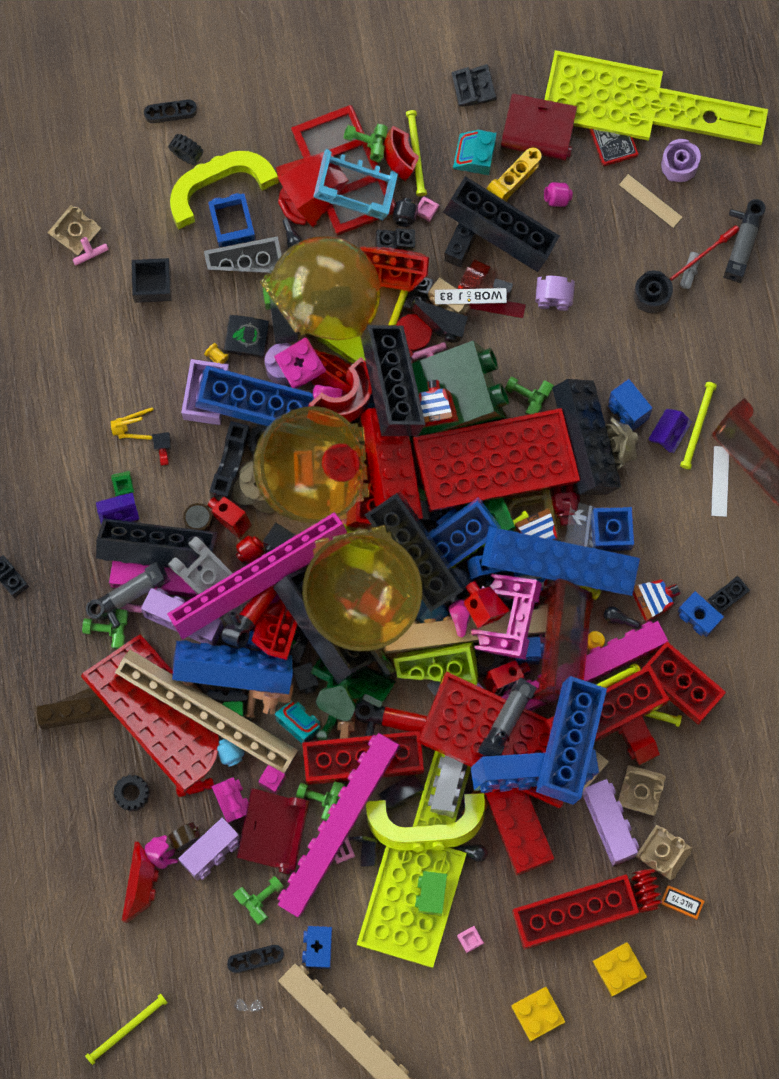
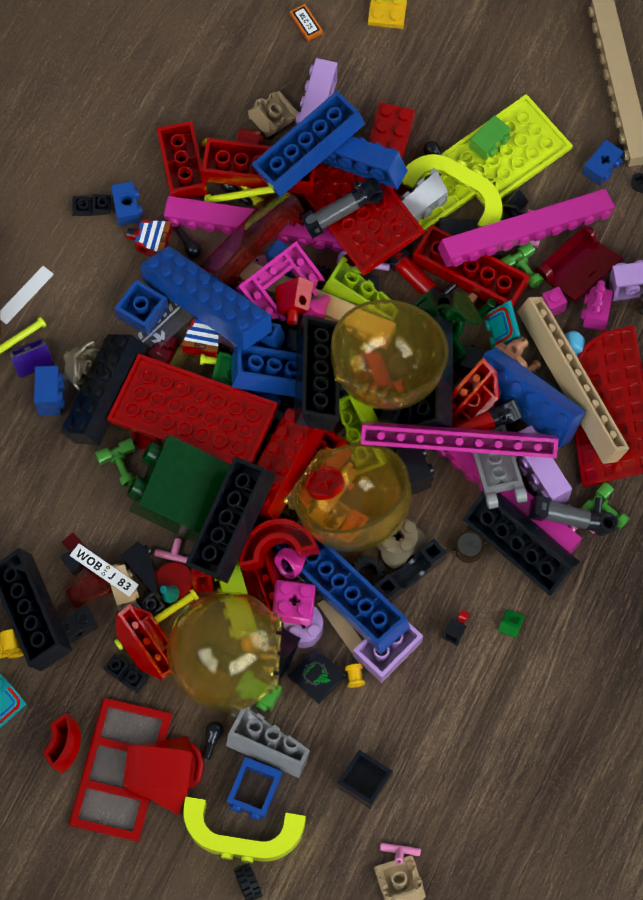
camera: 145 degrees left, 5 degrees down
(118, 508) = (531, 602): dark purple panel -> none
(120, 425) = (481, 668): yellow plant -> none
(230, 516) = (439, 520): red torso -> none
(237, 707) = (545, 372): green slope -> none
(249, 549) = (443, 491): red head -> none
(253, 902) = (630, 226): bright green bar -> none
(330, 195) = (144, 761): medium azure hinge -> none
(374, 140) = (77, 773): bright green bar -> none
(405, 212) = (100, 687): black head -> none
(407, 316) = (169, 593): none -> teal rock
(421, 191) = (45, 742): neon yellow bar -> none
(427, 209) = (78, 682): bright pink tile -> none
(437, 405) = (208, 475): torso -> none
(470, 939) = (482, 98): bright pink tile -> none
(505, 676) = (319, 252): red torso -> none
(538, 1014) = (470, 19): yellow plate -> none
(554, 292) = (32, 525): lavender brick -> none
(575, 912) = (391, 60): red brick -> none
(595, 639) = (219, 237): yellow piece -> none
(646, 892) = (326, 42): red piece -> none
(664, 852) = (291, 61): tan slope -> none

